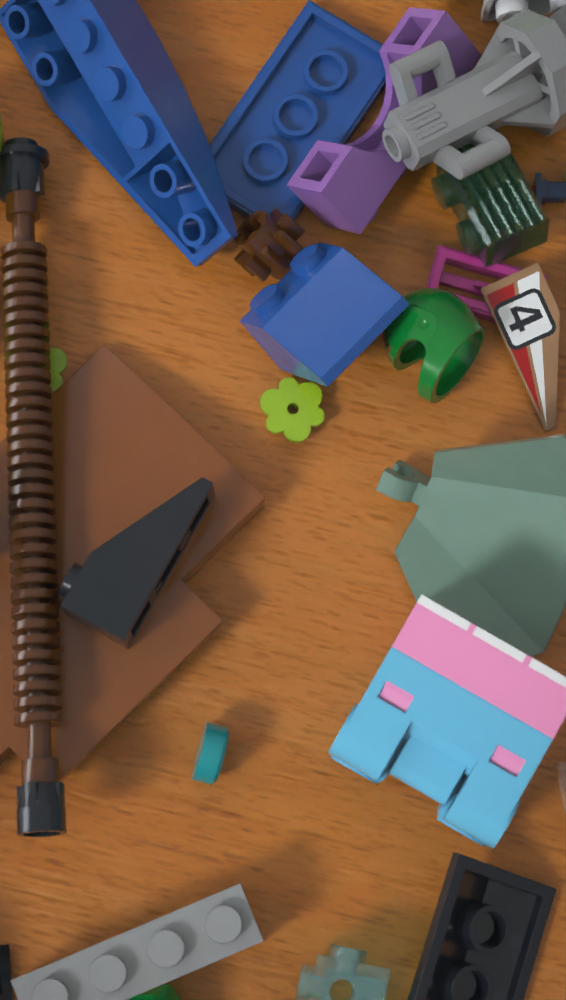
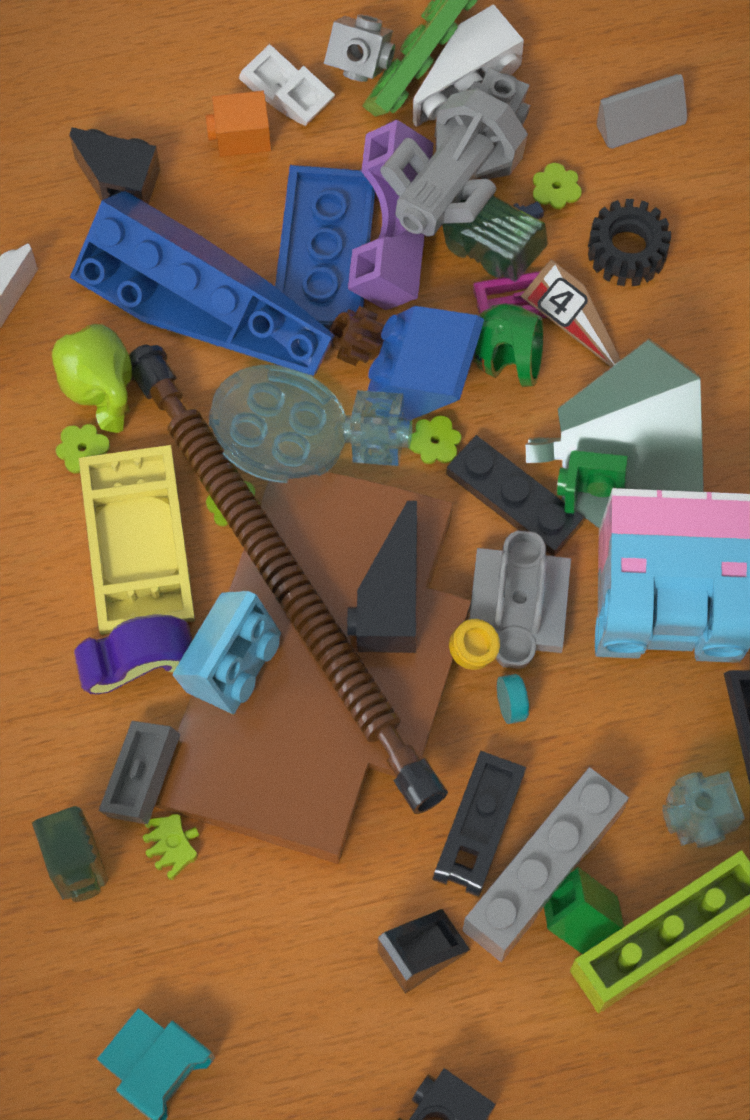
camera: 25 degrees left, 10 degrees down
(98, 872) = (480, 821): none -> black plate
(124, 304) = (277, 423): none -> clear light blue tile
(196, 673) = (474, 644): none -> yellow tile
(229, 367) = (378, 428): none -> clear light blue brick
(280, 643) = (522, 597): none -> light grey piece
(346, 518) = (513, 494): none -> black plate
(442, 548) = (591, 474): none -> green bracket

